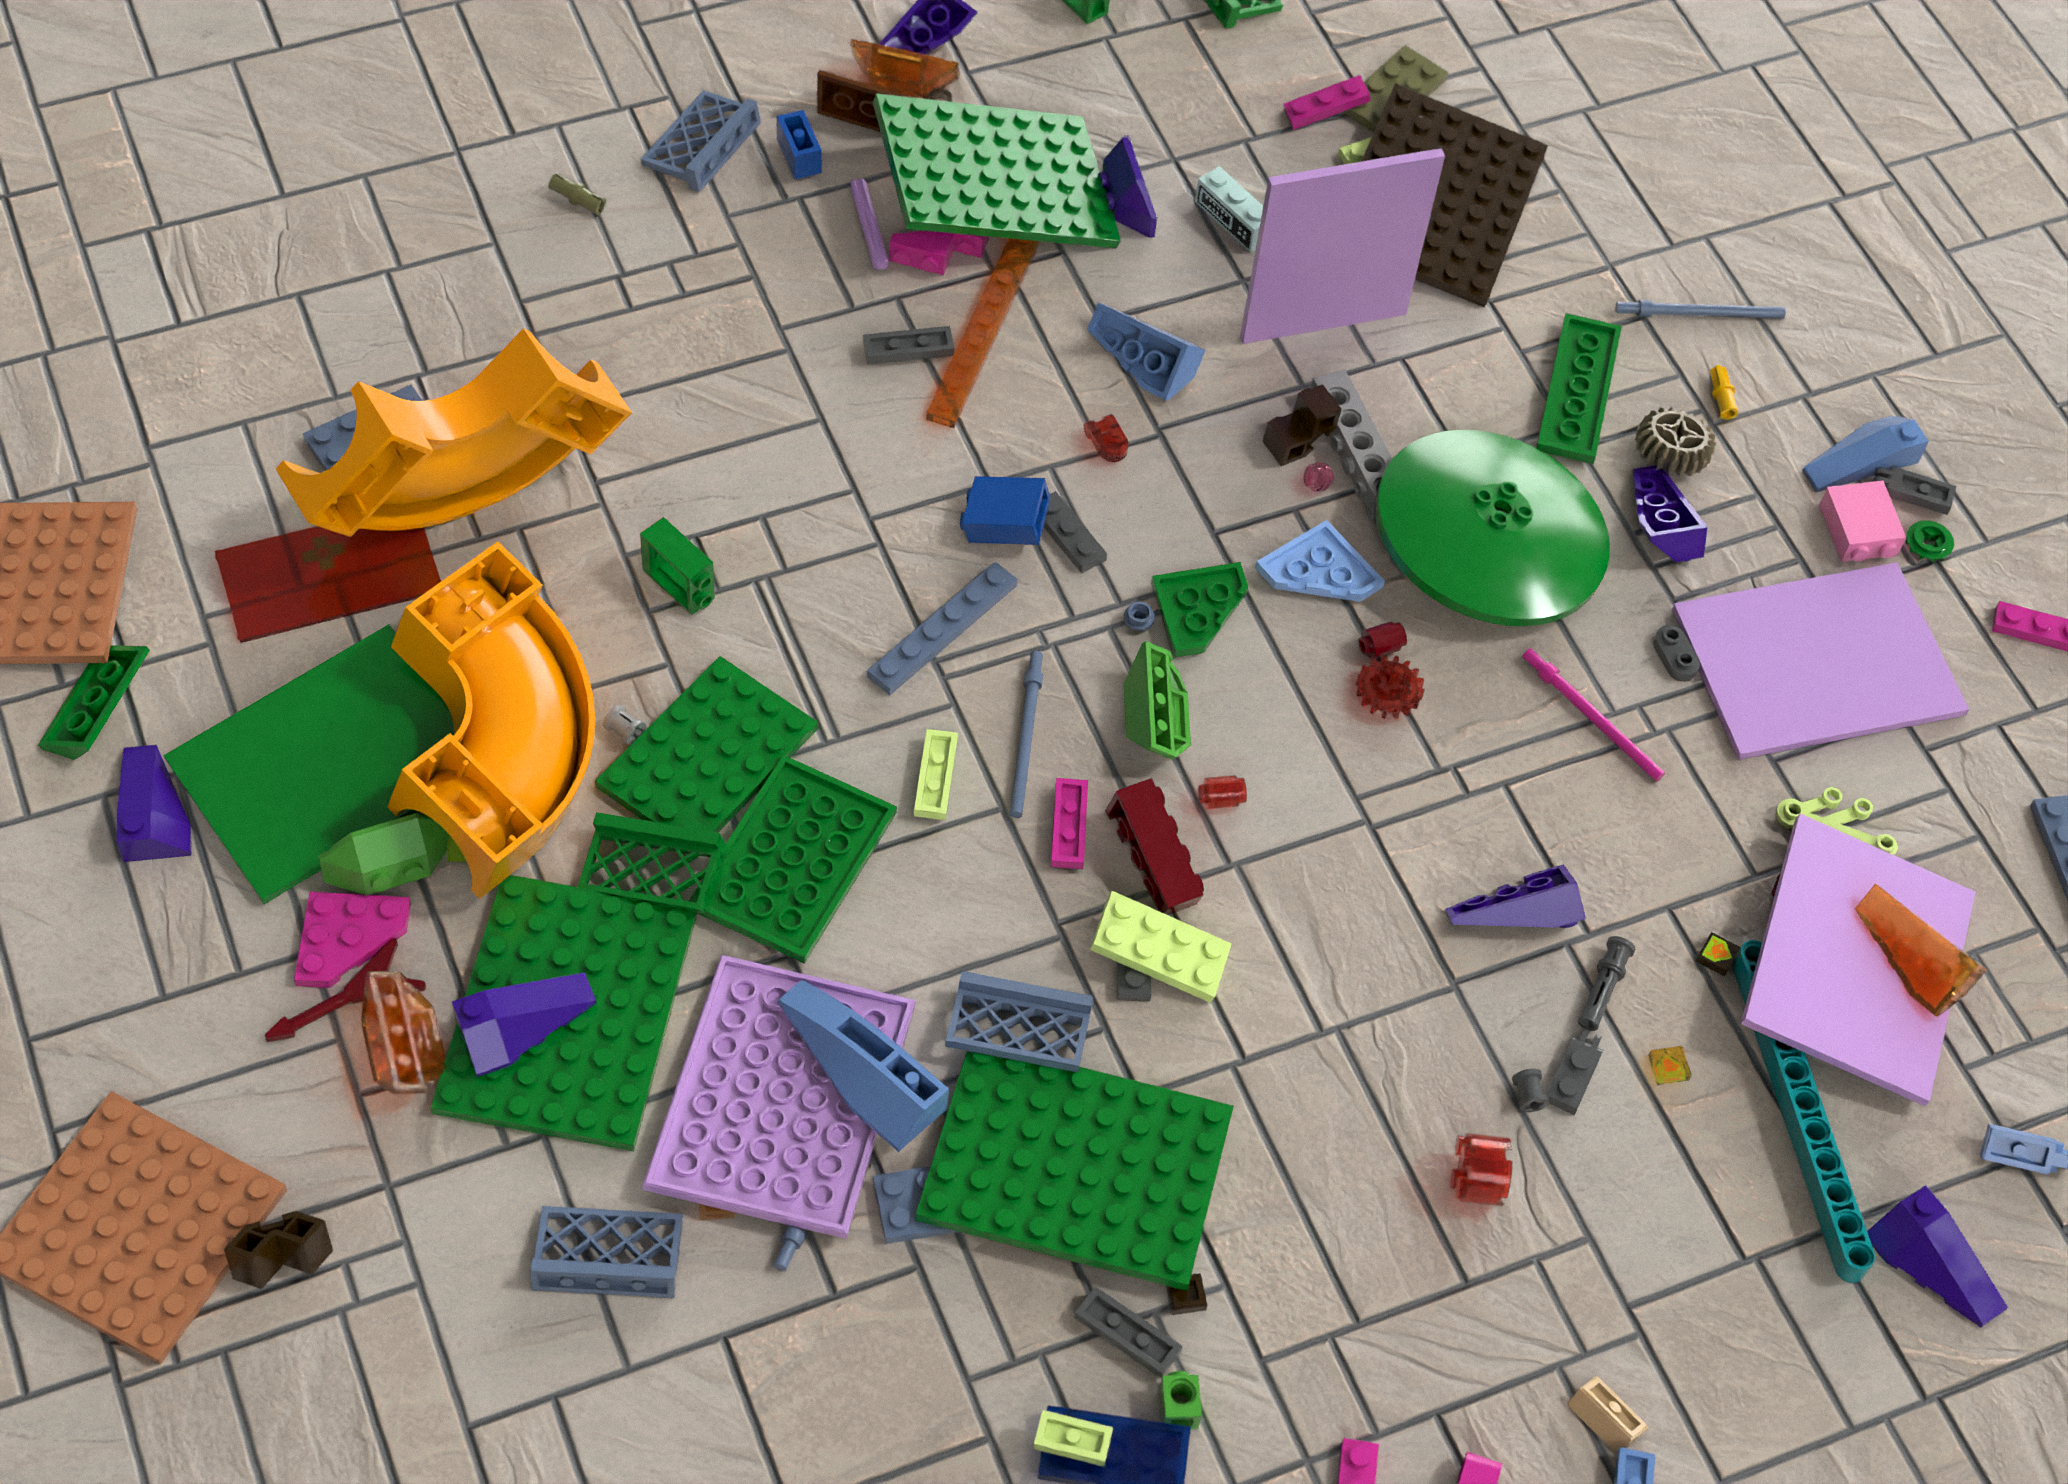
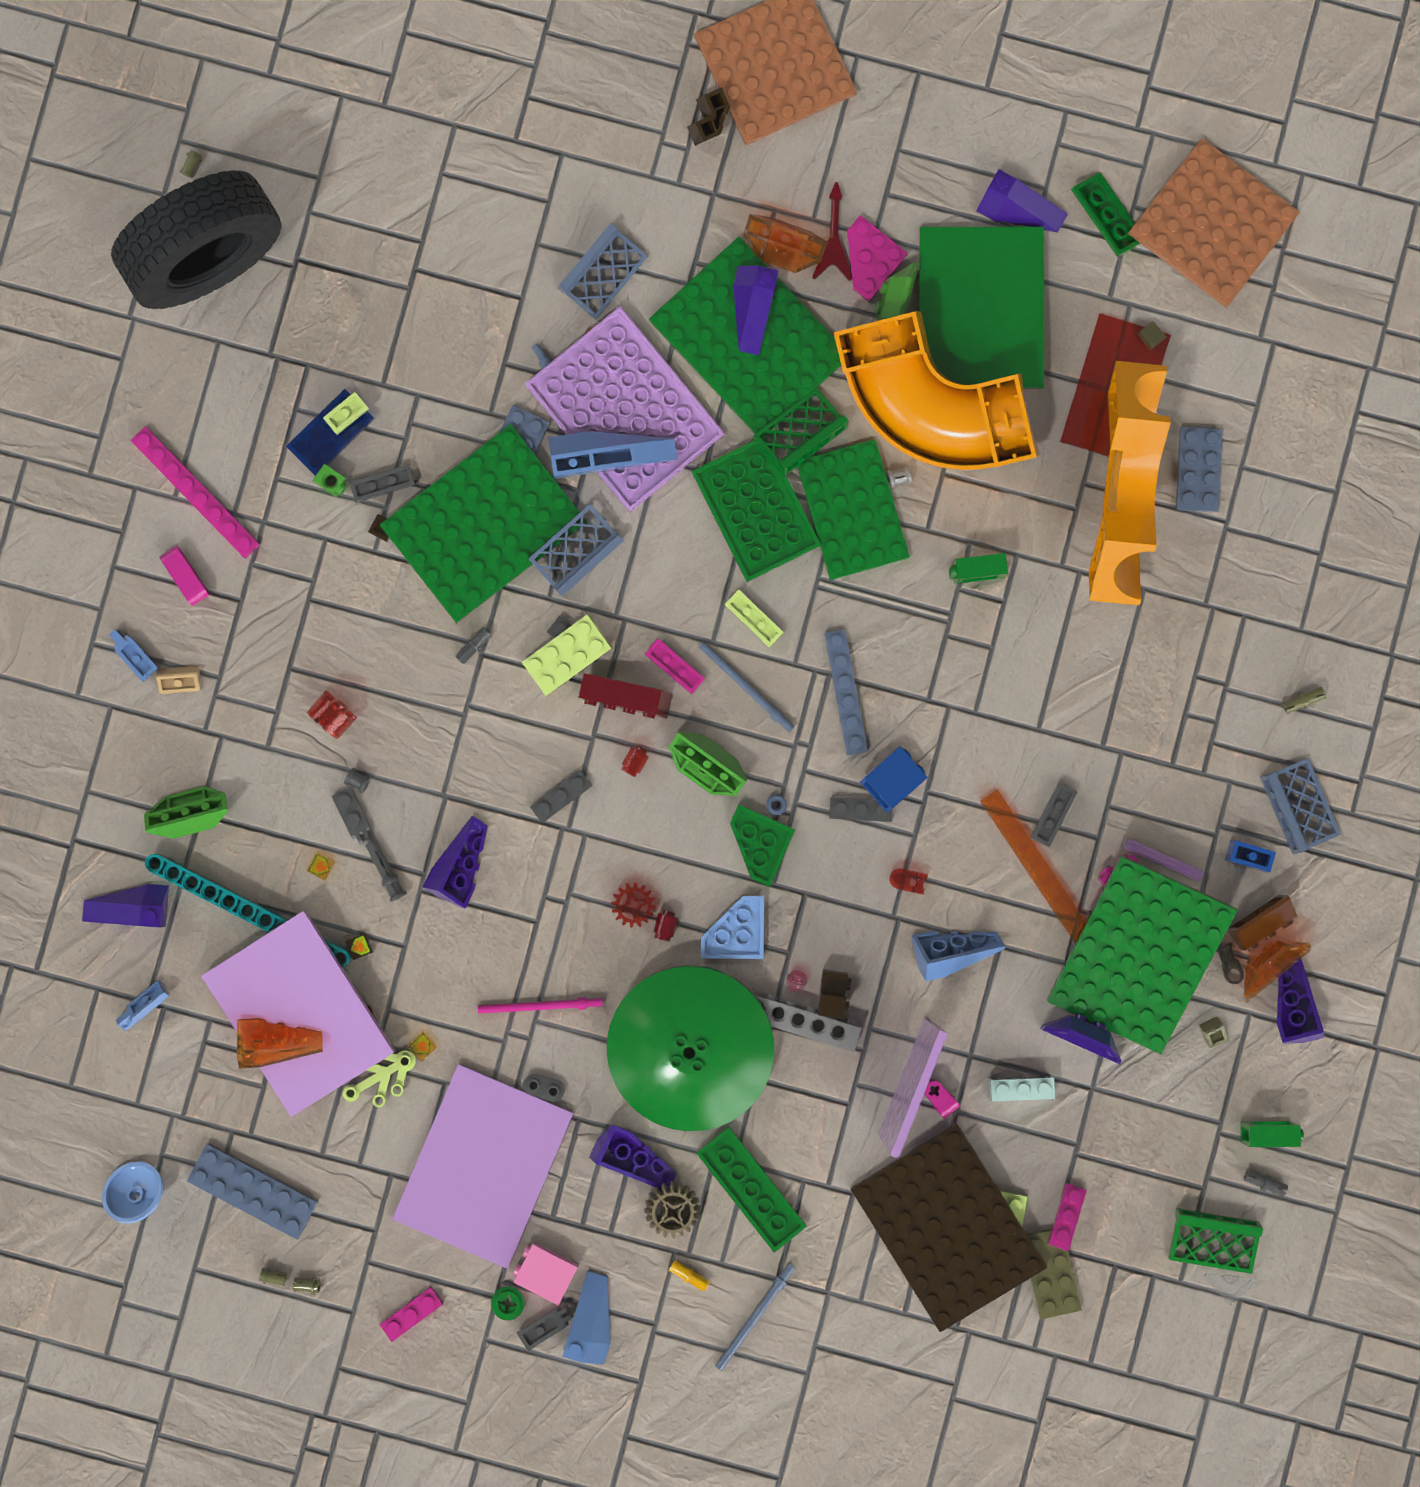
camera: 135 degrees right, 30 degrees up
(232, 565) = (1151, 335): none -> olive slope
(1015, 89) = (1214, 1032): none -> olive slope
(1242, 1071) = (473, 646): none -> dark grey axle
(1336, 850) = (561, 796): none -> dark grey plate
(1758, 808) = (422, 1046): none -> clear yellow tile
(1758, 1267) = (186, 813): none -> bright green wedge

